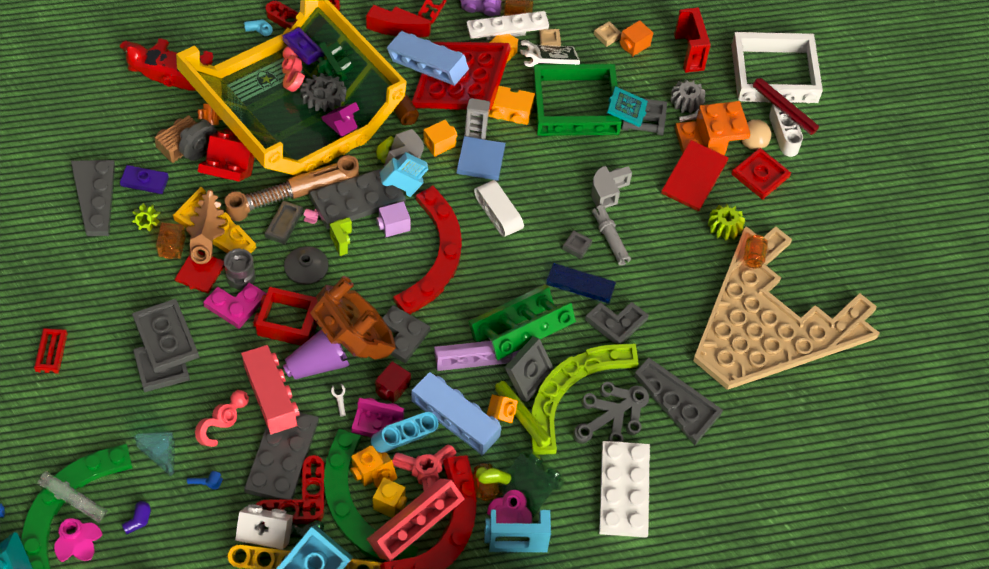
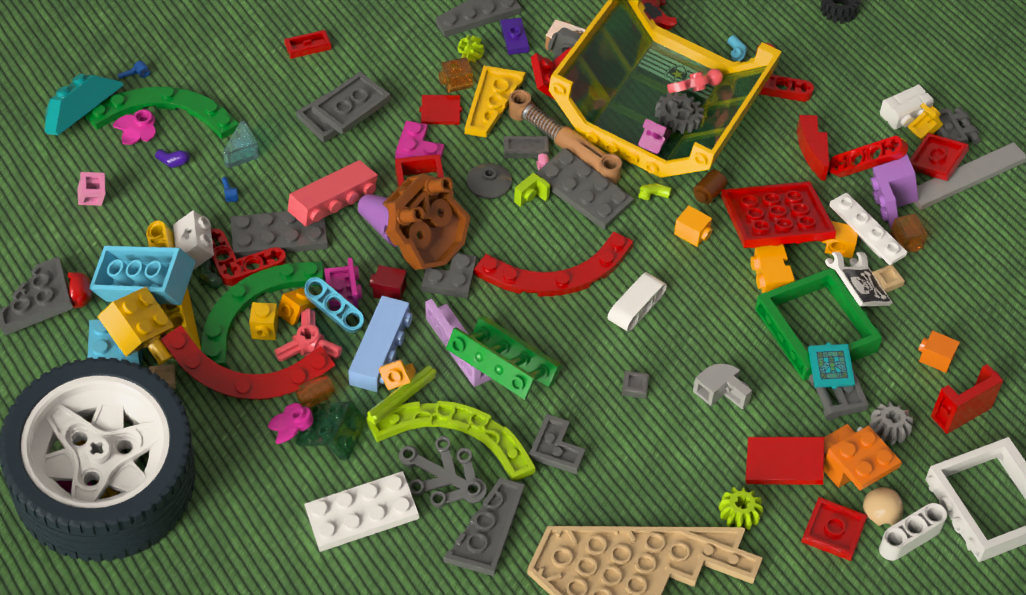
camera: 70 degrees right, 5 degrees down
(63, 491) = (172, 98): clear pin -> none
(205, 227) = (479, 90): medium nougat plant -> none
(223, 417) = (294, 176): coral piece -> none
(239, 268) = (450, 129): flat silver wheel -> none
(303, 46) = (723, 78): dark purple plate -> none
(326, 65) = (713, 103): dark green hips -> none
(340, 400) = (360, 247): white hand -> none
(364, 464) = (288, 287): light orange bracket -> none
(393, 219) = (573, 223): lavender brick -> none
(404, 173) = (623, 207): medium azure piece -> none
(405, 142) = (655, 207): light grey brick -> none
(415, 519) = (240, 339): coral brick -> none
(428, 58) = (779, 179): light blue brick -> none
(481, 109) = (727, 241): light grey slope -> none
(481, 158) = (693, 270): medium blue tile -> none
(492, 476) = (312, 382): lime arm -> none
(529, 368) = (452, 380): dark grey plate -> none
(538, 534) = (272, 445): medium azure window -> none
(581, 283) = (588, 402): clear blue tile -> none
(607, 33) = (930, 322): tan tile -> none
(607, 227) = (669, 402): light grey pin -> none
(755, 251) = (708, 540): clear orange brick -> none
(785, 106) = (929, 514): dark red axle -> none

